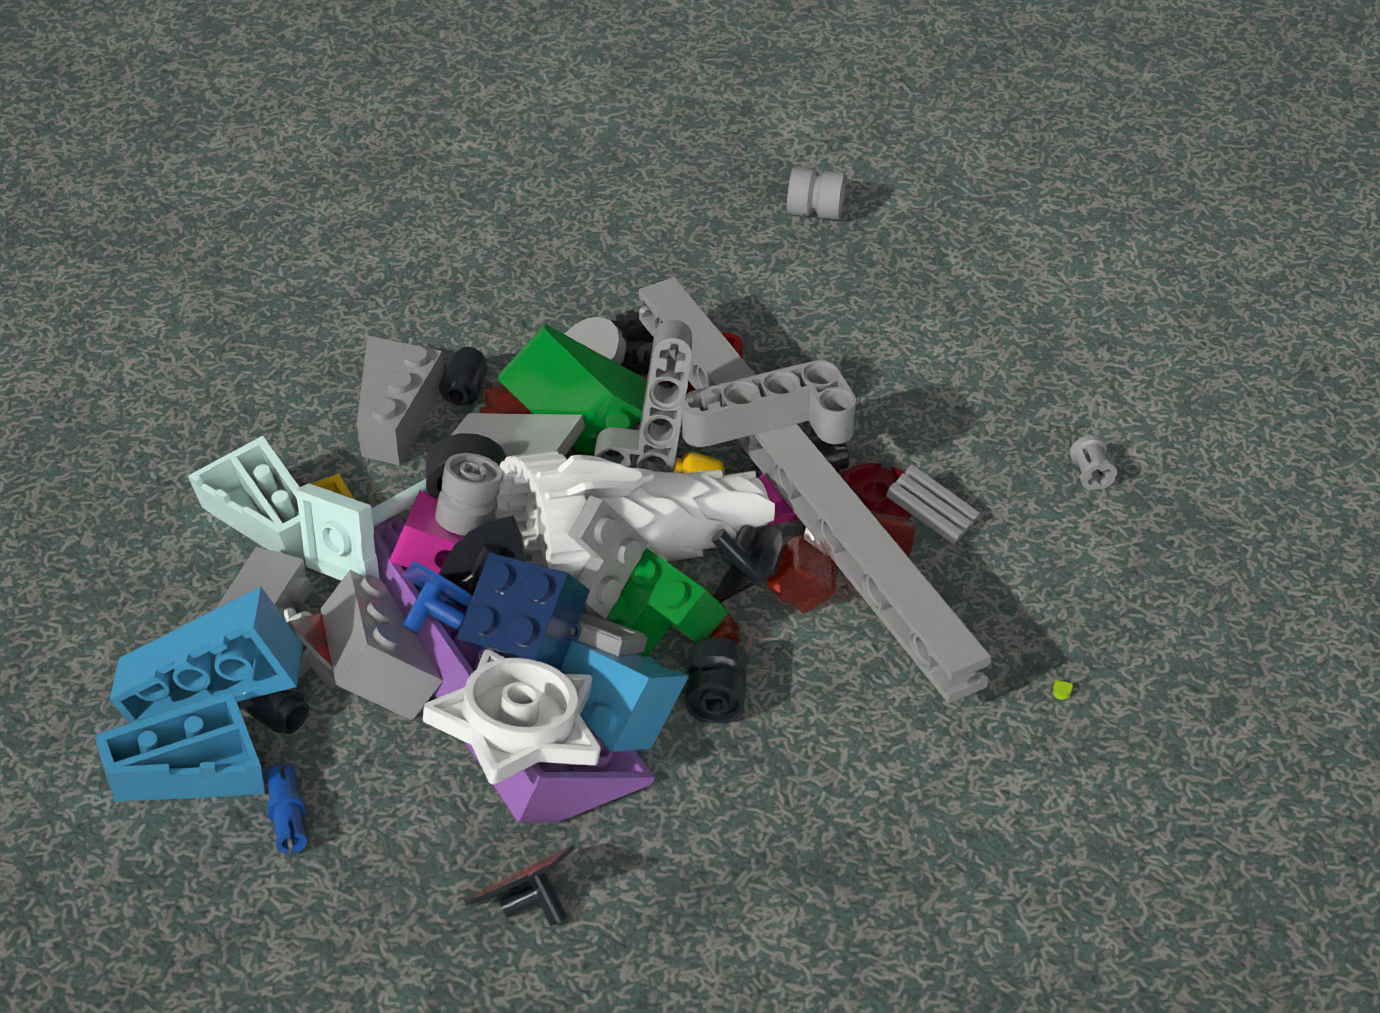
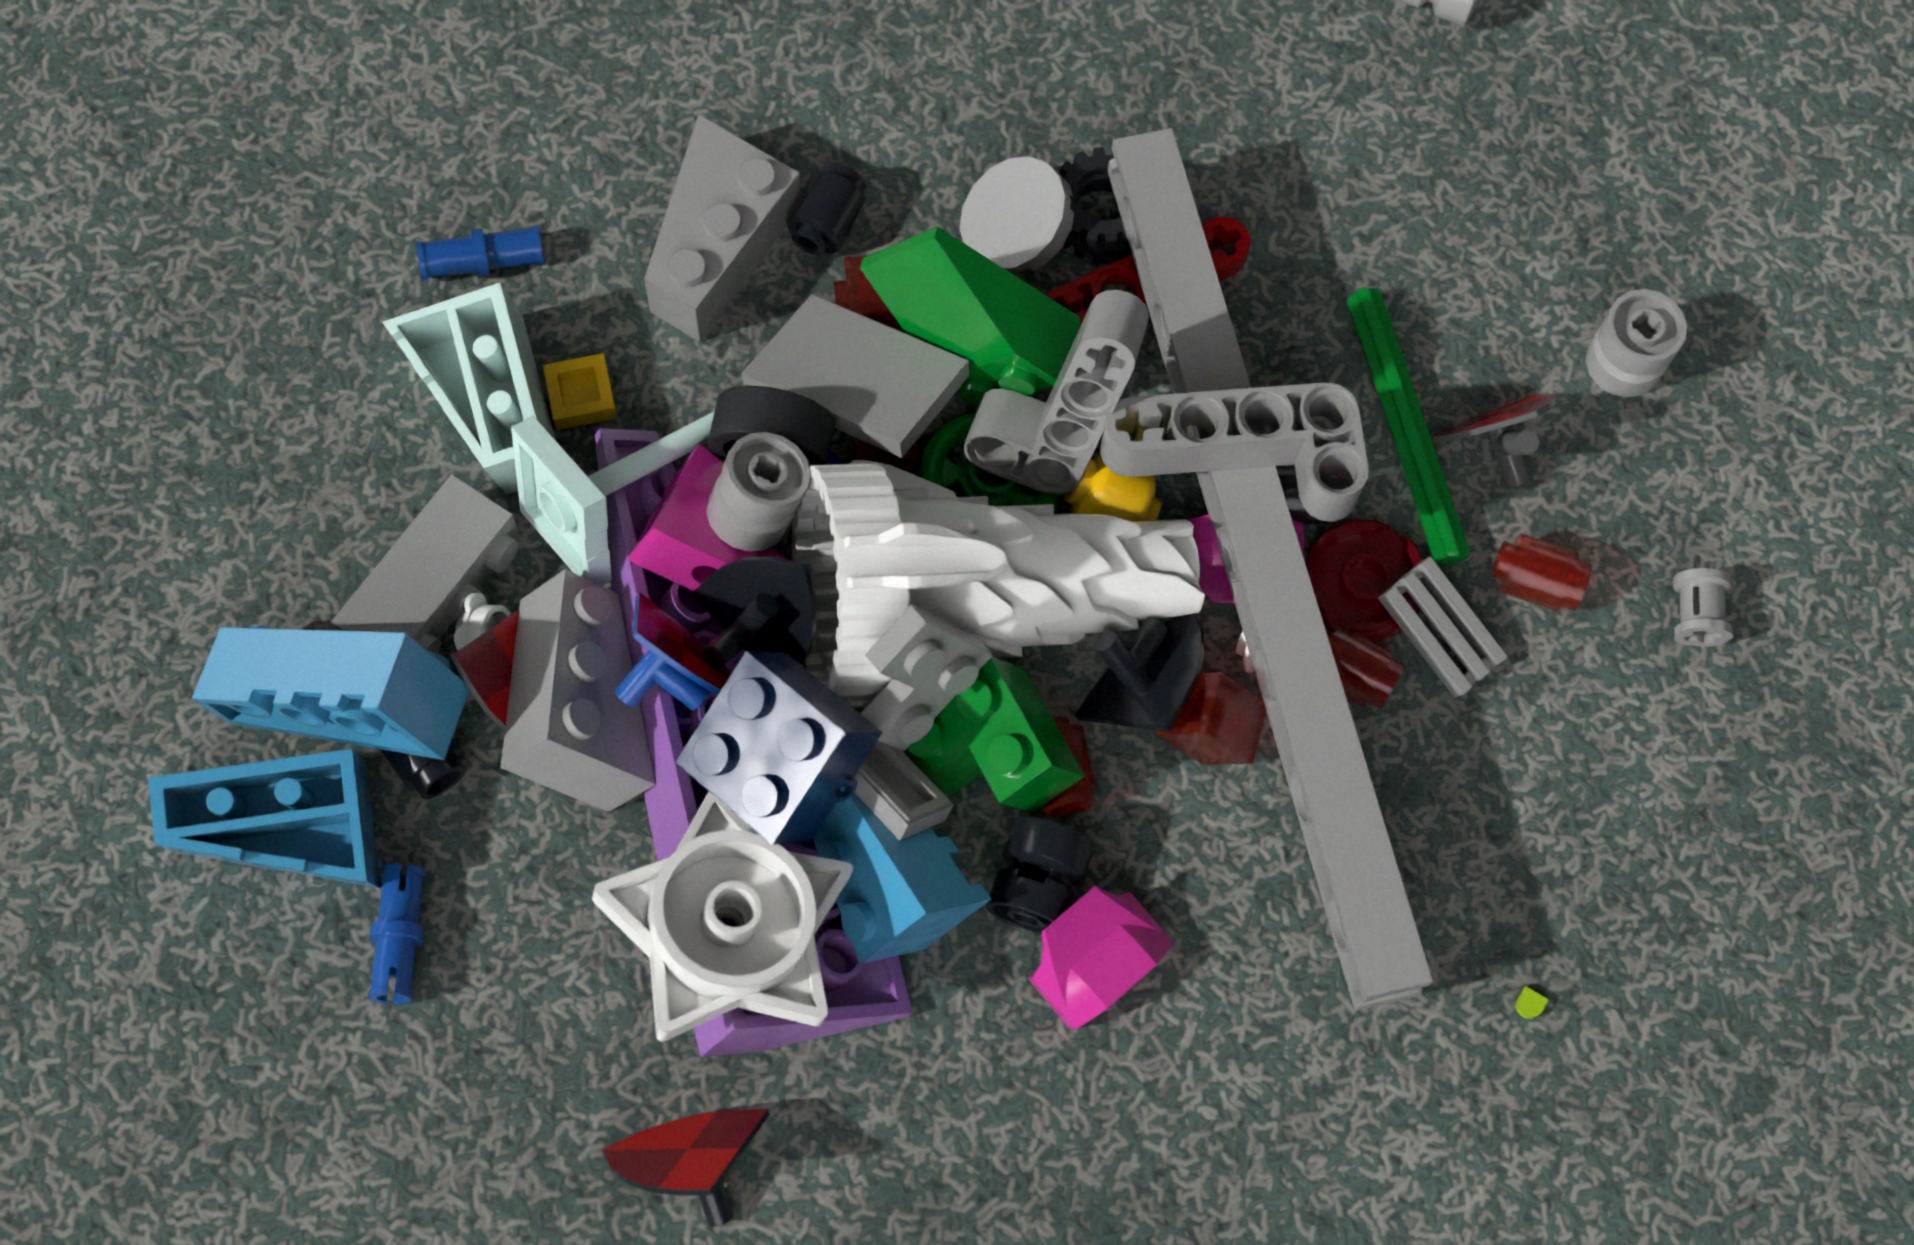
camera: 10 degrees right, 25 degrees up
(220, 446) = (479, 253): none -> blue pin
(765, 716) = (1096, 954): none -> dark pink slope
(880, 420) = (1408, 427): none -> green axle
(938, 394) = (1507, 443): none -> dark grey shield
(985, 465) = (1541, 573): none -> clear red brick
(1001, 340) = (1636, 342): none -> light grey wheel

